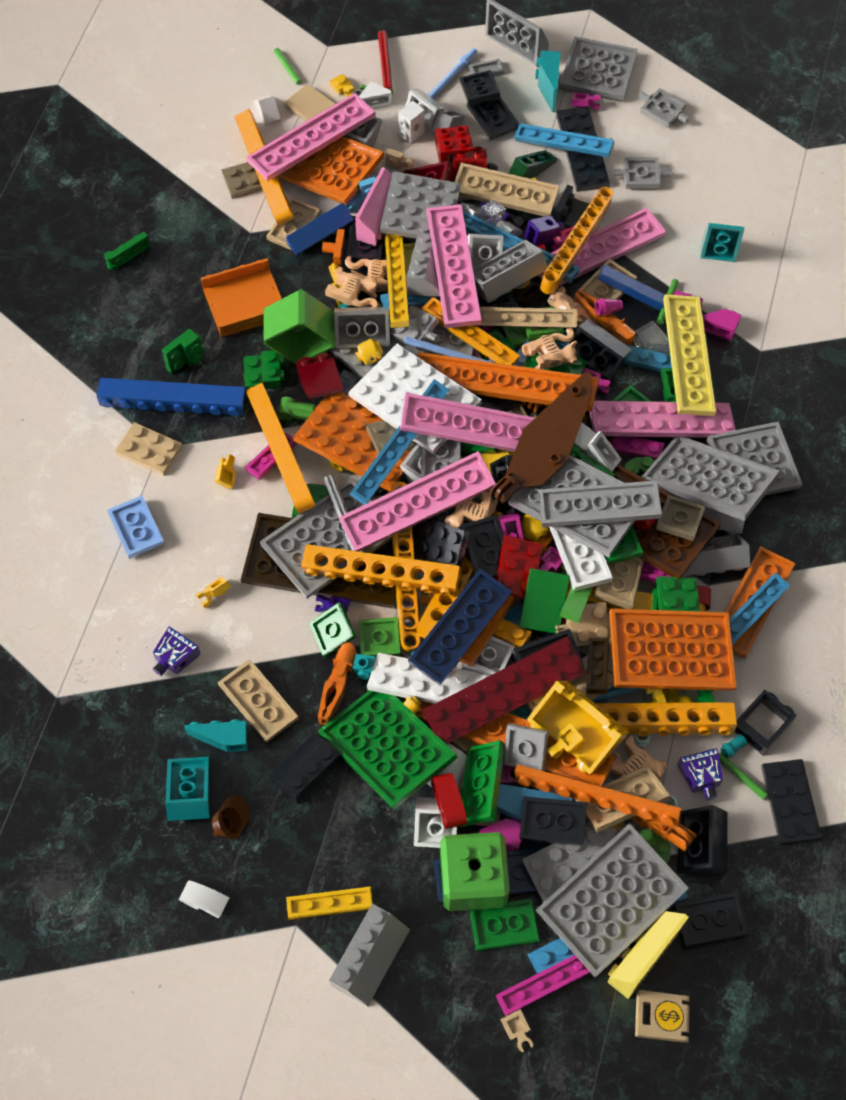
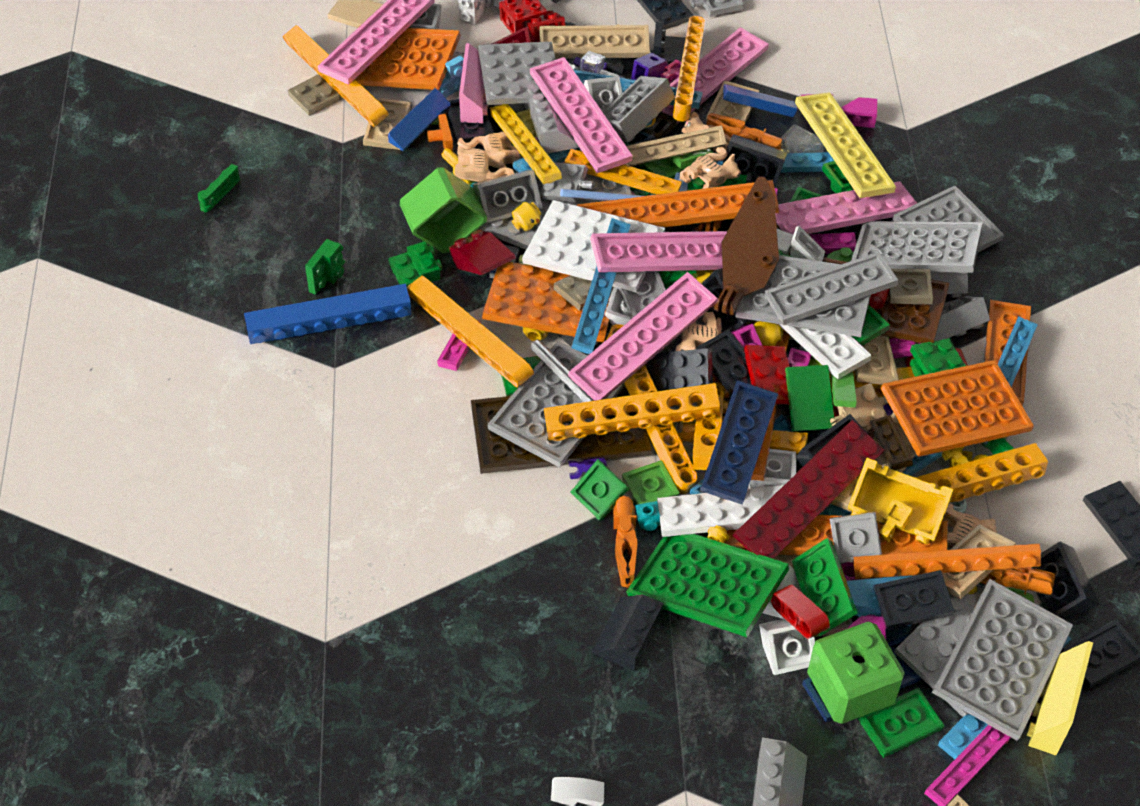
camera: 20 degrees left, 10 degrees down
(135, 527) = (342, 449): light blue plate -> none
(148, 448) = (323, 371): tan plate -> none
(174, 652) = (439, 558): torso -> none
(188, 789) = (513, 688): teal slope -> none
(215, 589) = (457, 484): yellow plate -> none
(225, 474) = (418, 373): yellow plate -> none
(226, 736) = (526, 625): teal slope -> none
(231, 818) = (572, 703): reddish brown piece -> none
(240, 296) = (360, 203): orange panel -> none
(258, 700) = (549, 581): tan plate -> none
(268, 110) = (313, 24): white slope -> none
(291, 409) = (467, 294): bright green piece -> none
(329, 903) = (711, 756): yellow tile -> none
(397, 159) = (471, 38): tan plate -> none
(532, 164) = (609, 13): dark green slope -> none
(607, 306) = (744, 120): dark pink cone -> none
(667, 1016) = (1104, 757): tan container -> none
(672, 288) = (798, 115): bright green bar -> none
(702, 772) = (1031, 519): torso -> none
(721, 242) = (829, 38): teal slope -> none
(730, 748) = (1047, 491): teal pin -> none
(742, 776) = (1069, 513): bright green bar -> none
(752, 736) = (1063, 472): black window -> none

